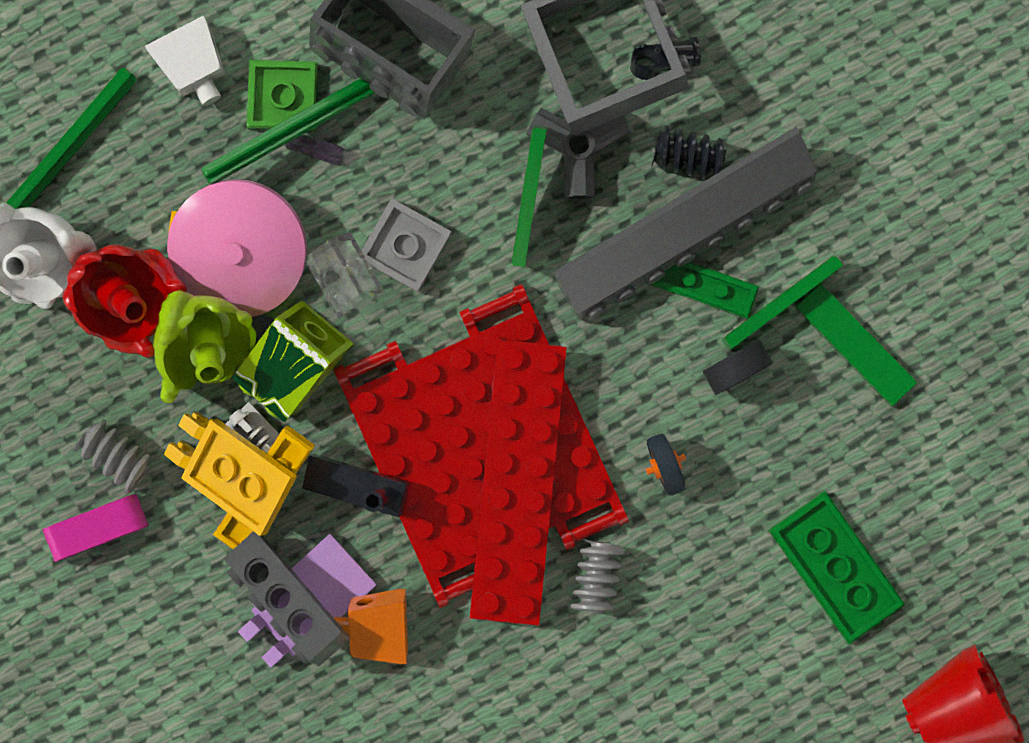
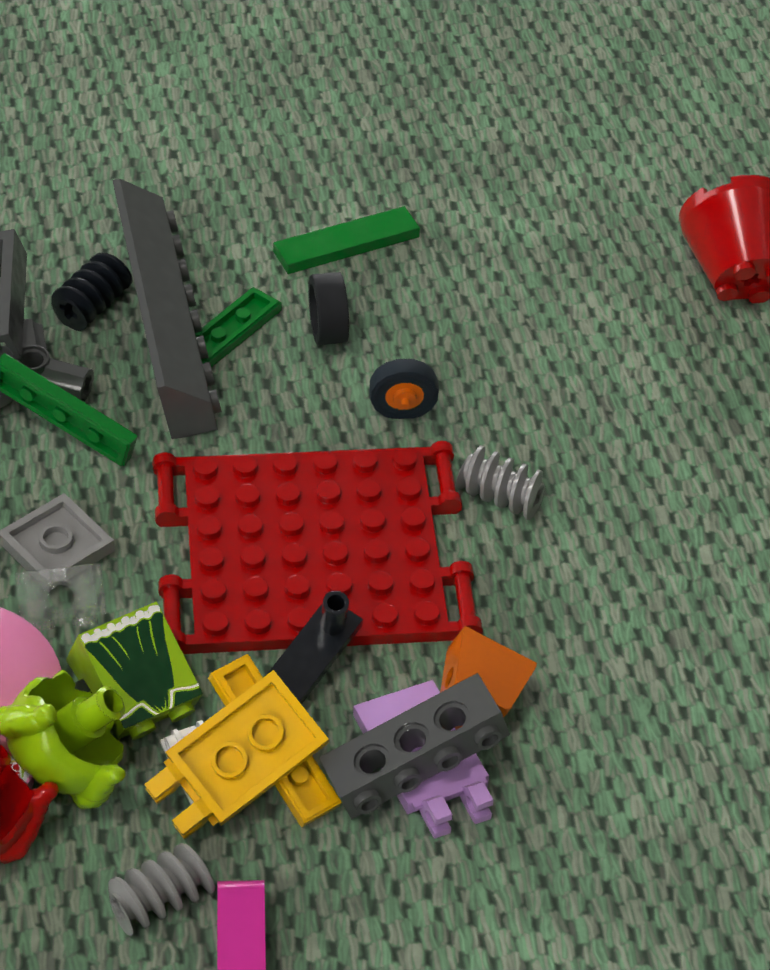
camera: 75 degrees left, 40 degrees down
(518, 482) = (372, 512): red plate -> none
(781, 302) = (279, 271): green tile -> none
(836, 567) = (564, 313): green tile -> none

